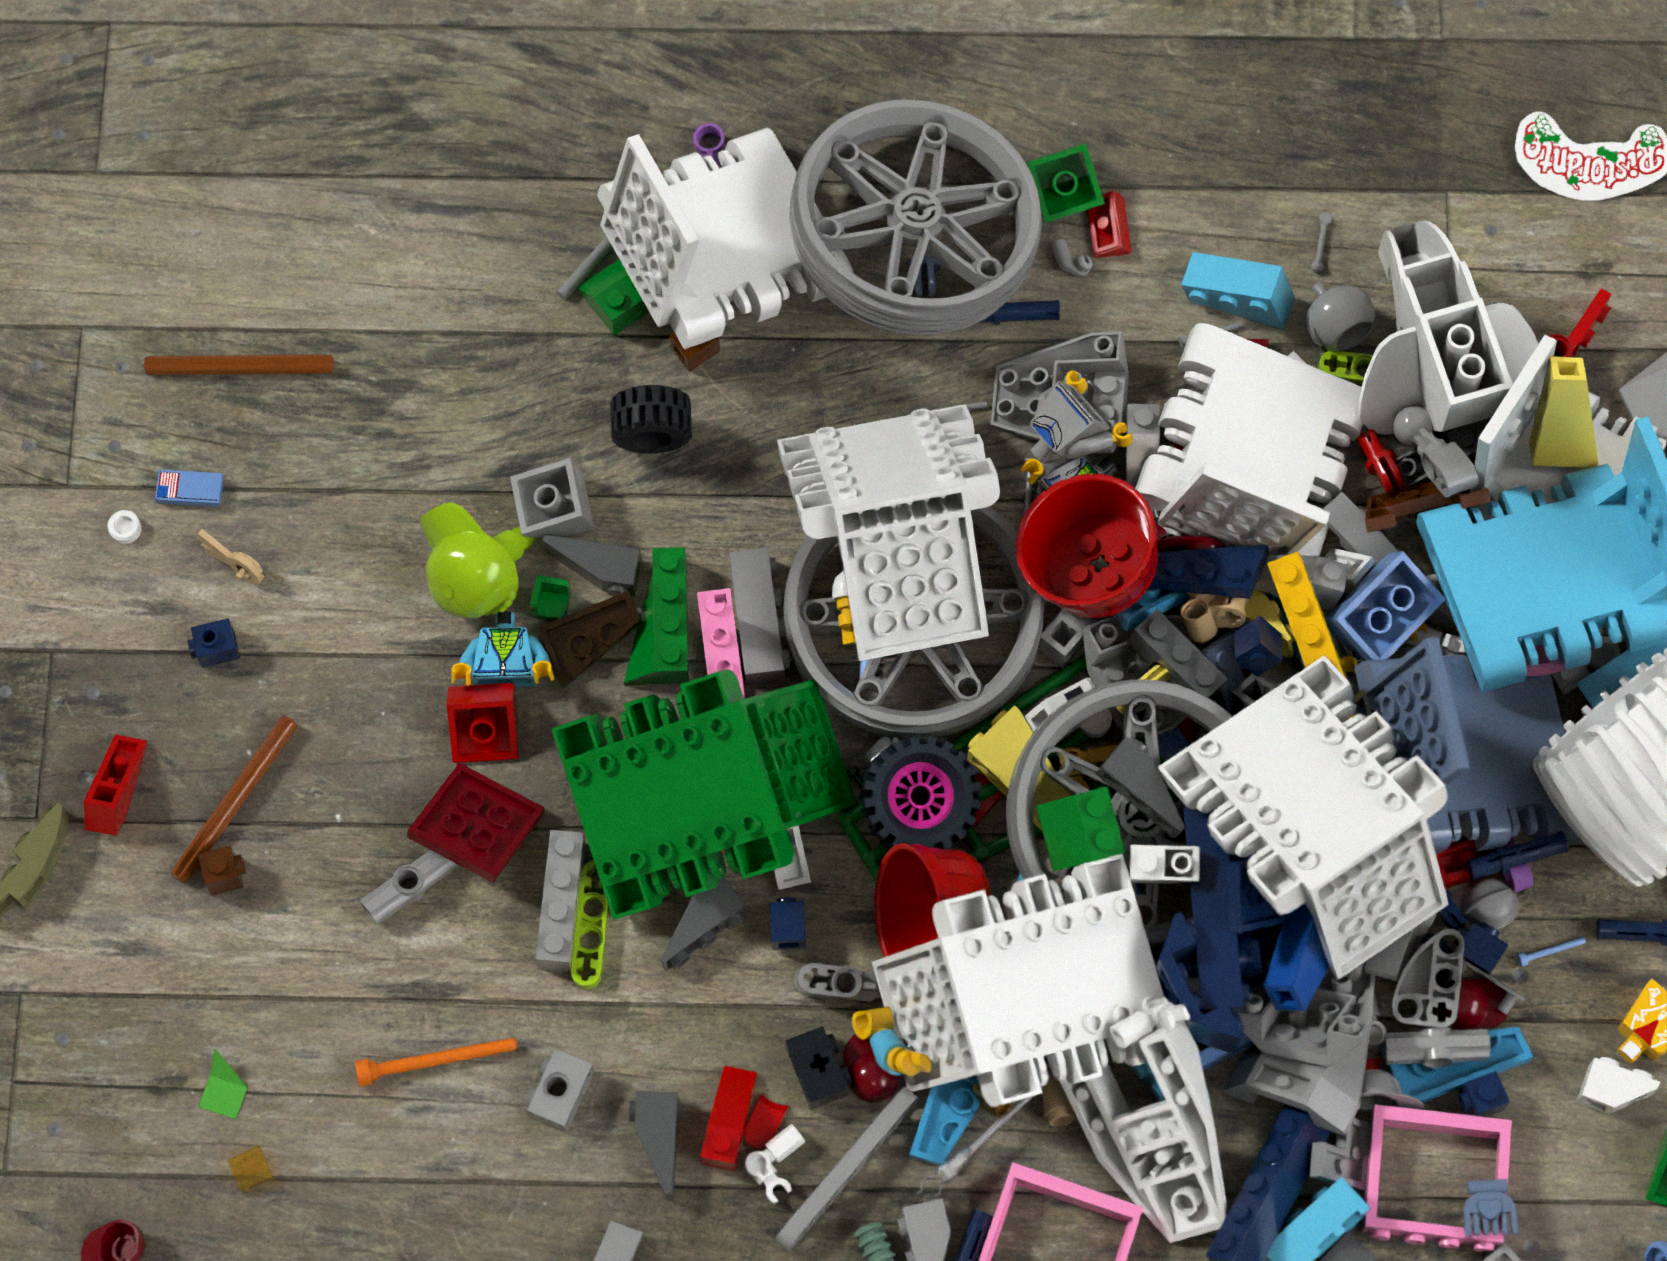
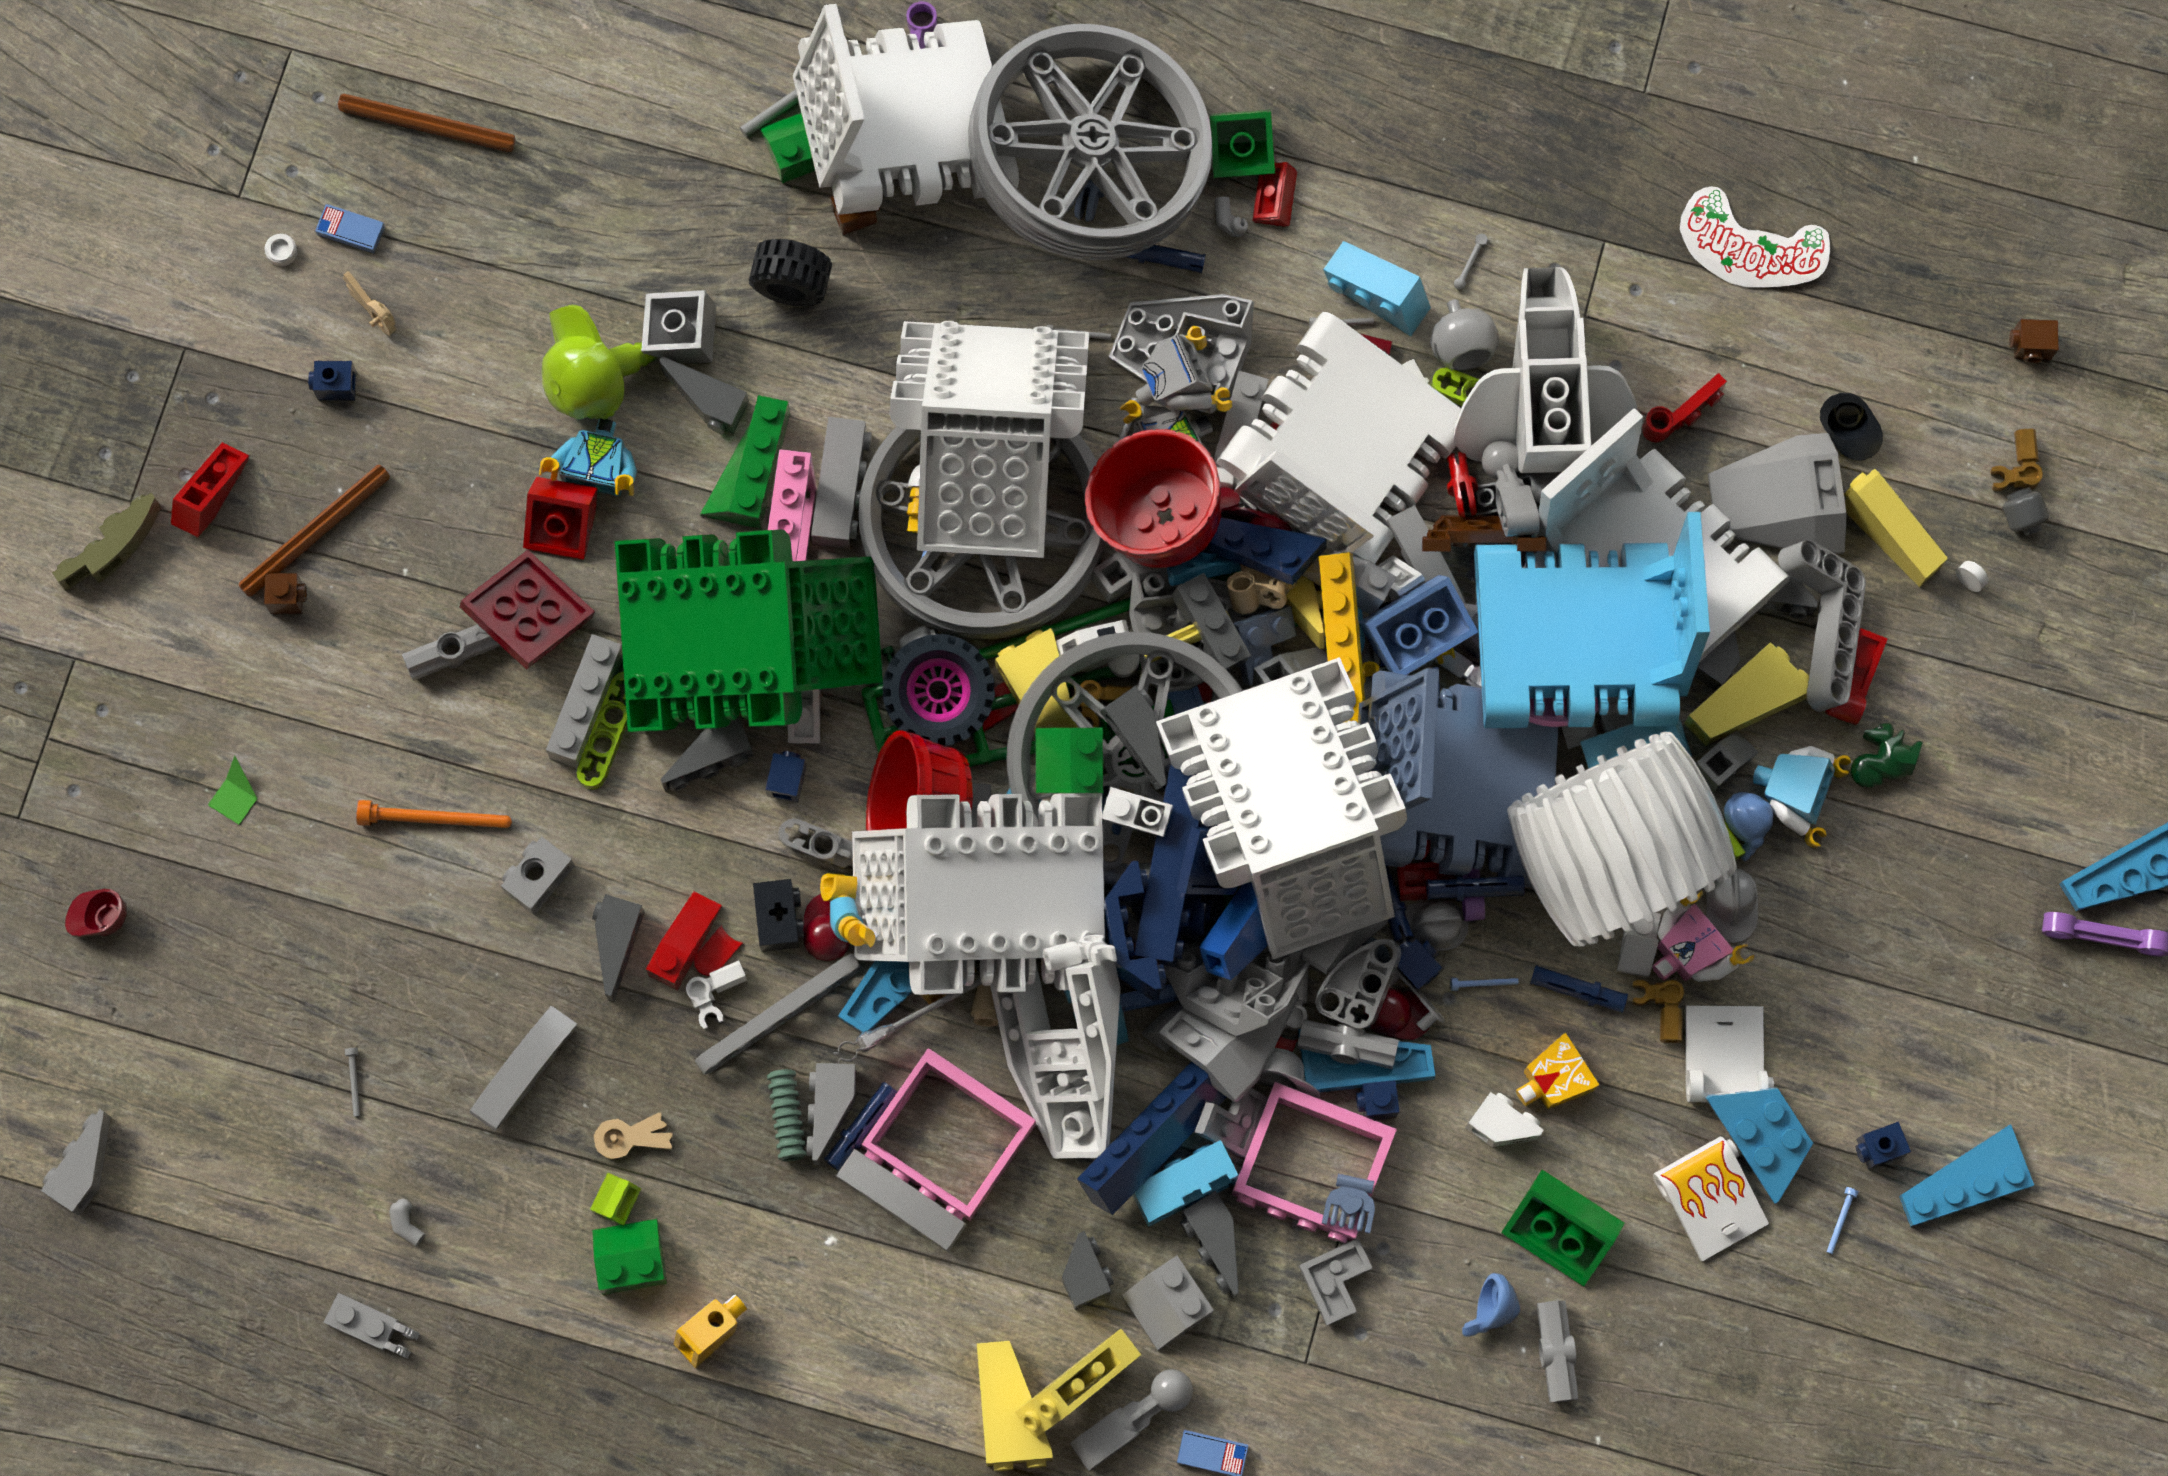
camera: 10 degrees right, 5 degrees up
(250, 1168) = (240, 873): clear yellow tile -> none
(550, 598) = (653, 418): green panel -> none
(588, 634) = (677, 460): dark brown wing -> none
(1258, 646) = (1289, 631): dark blue brick -> none
(1563, 418) = (1638, 490): light yellow slope -> none

